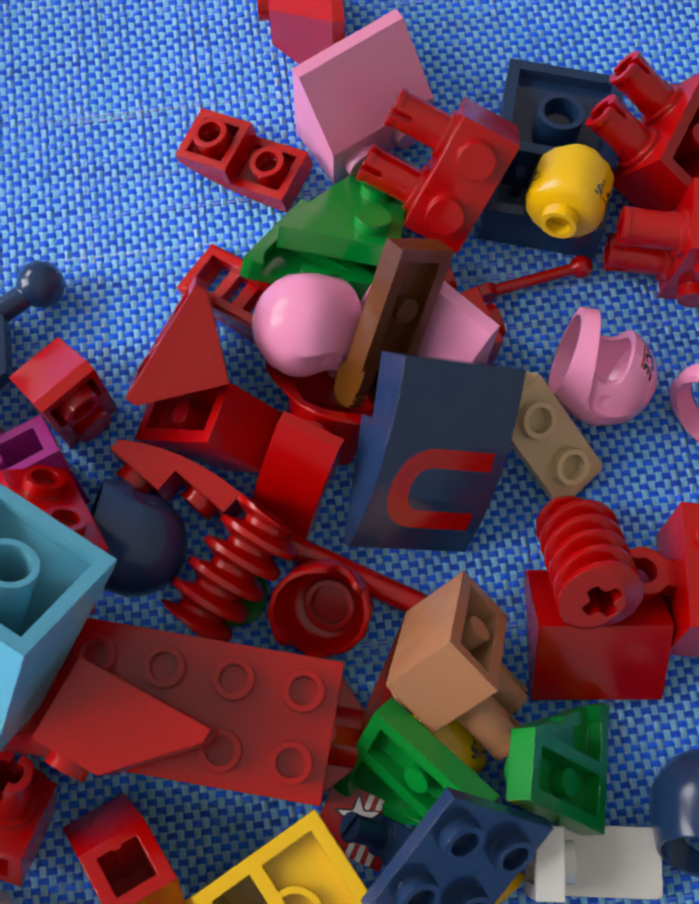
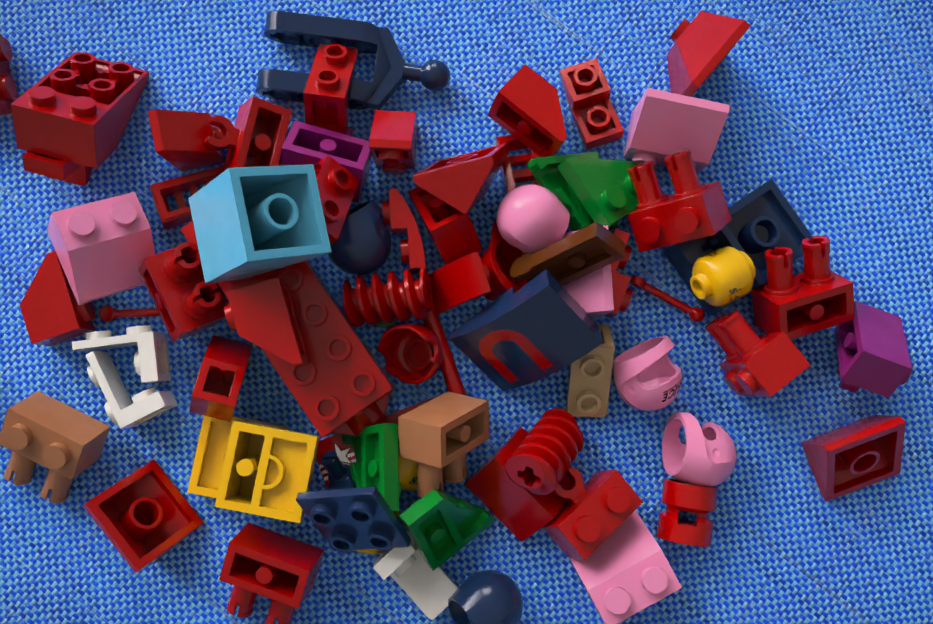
camera: 40 degrees right, 10 degrees up
(189, 221) = (530, 112): none -> red slope

